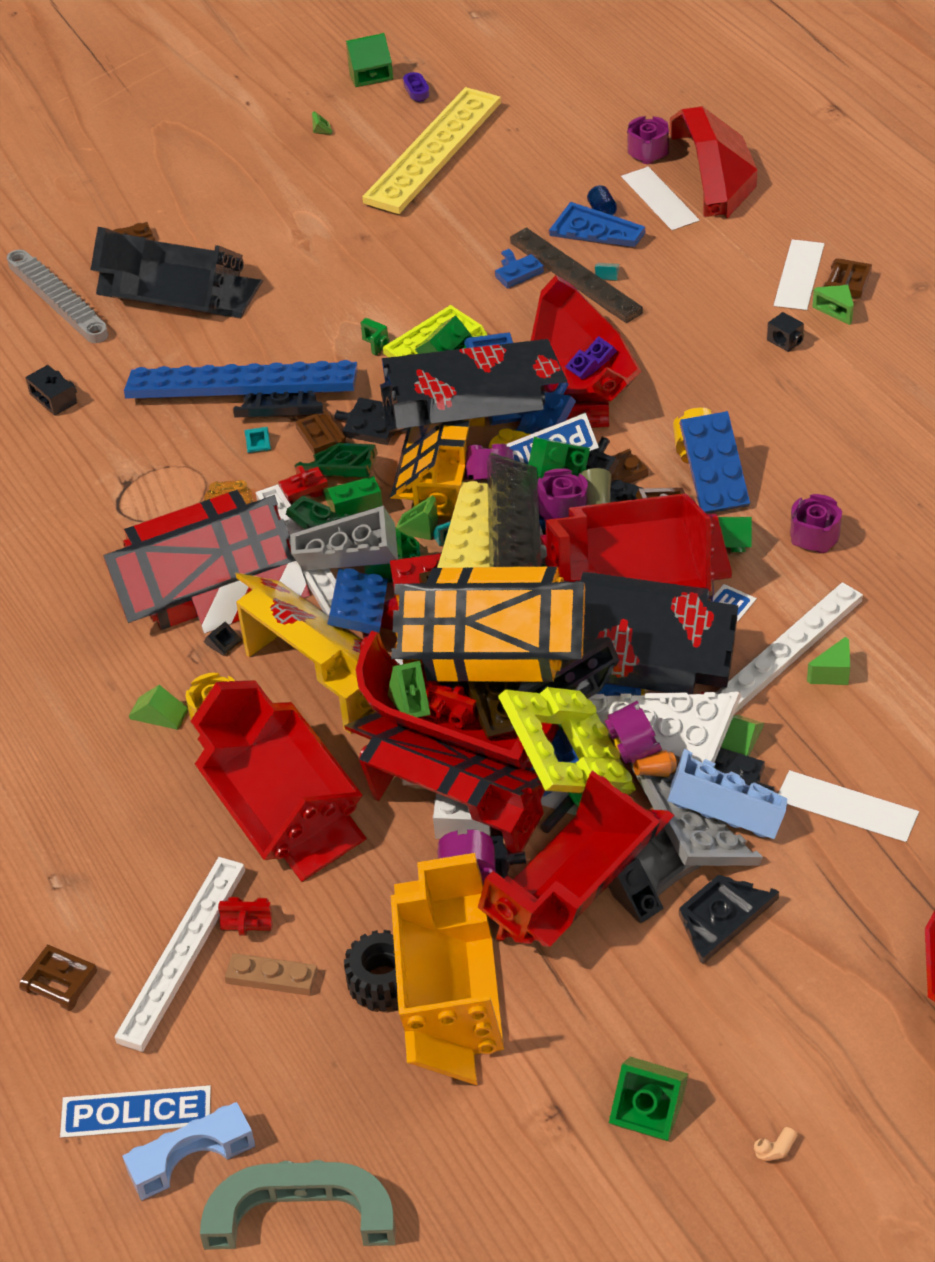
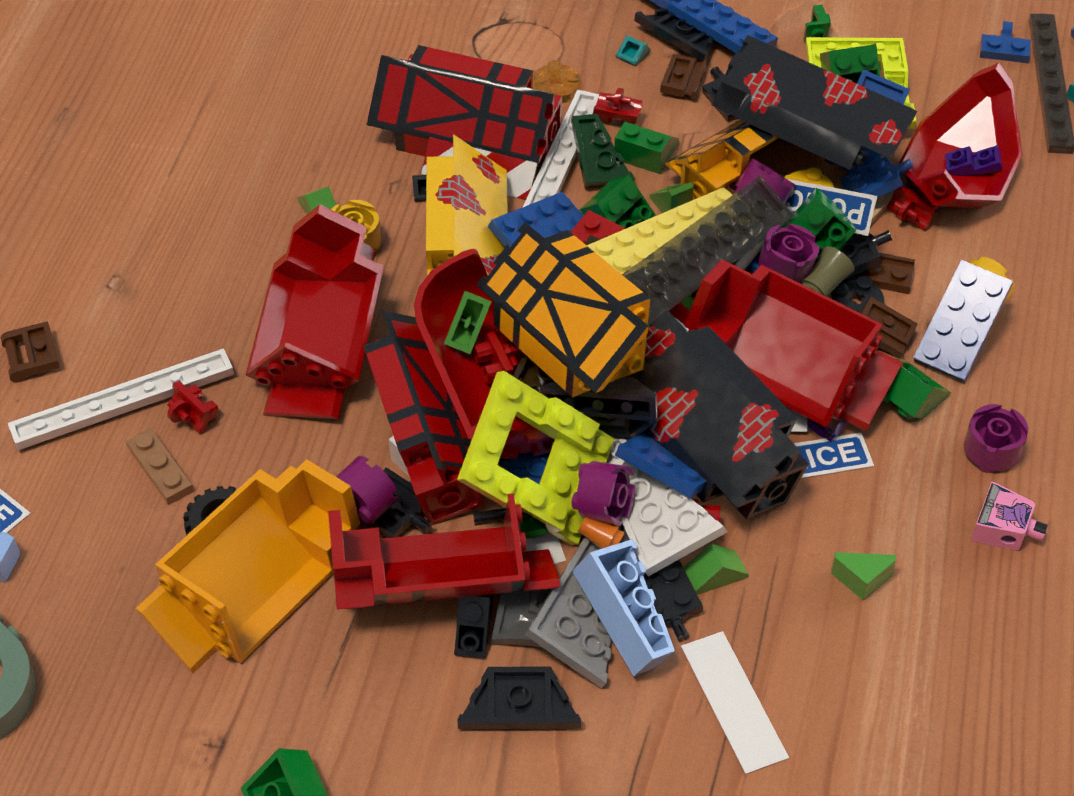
camera: 40 degrees right, 5 degrees up
(344, 460) = (670, 110): dark green wing -> none
(347, 542) = (579, 173): light grey wedge -> none
(647, 688) = (661, 464): none -> blue wing
(793, 643) = (846, 528): white plate -> none
(876, 568) = (1006, 519): none -> bright pink torso

